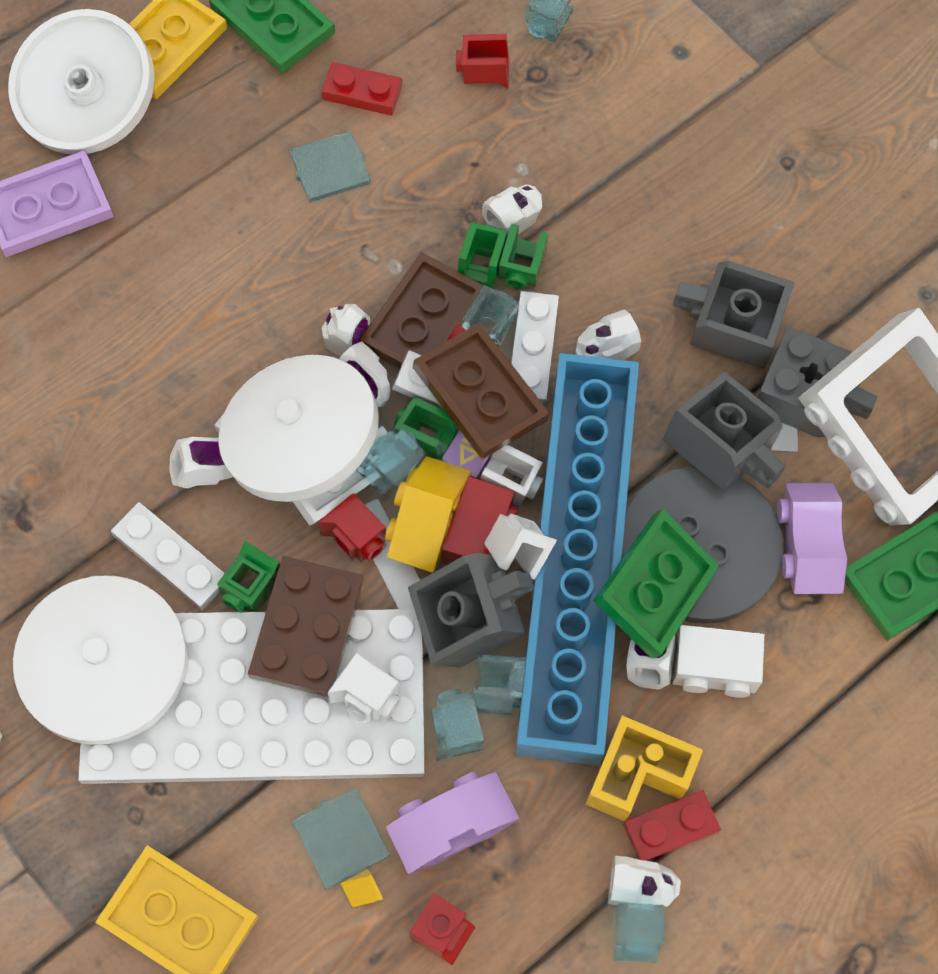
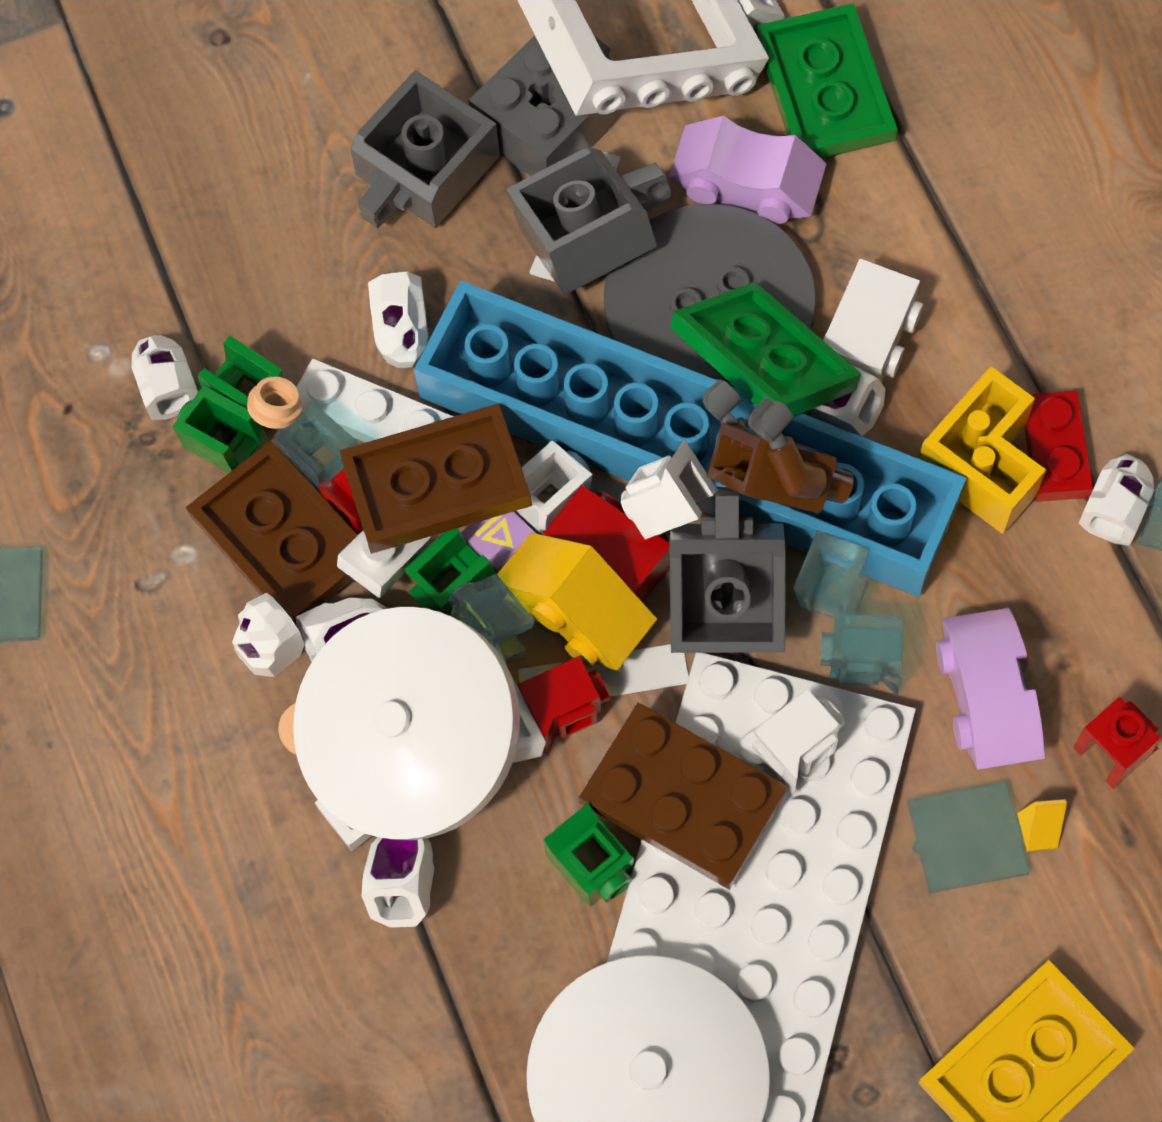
camera: 65 degrees left, 0 degrees up
(169, 555) = (515, 958): white plate -> none
(512, 269) = (275, 403): none -> light nougat plate
(550, 604) = (765, 461): none -> reddish brown torso

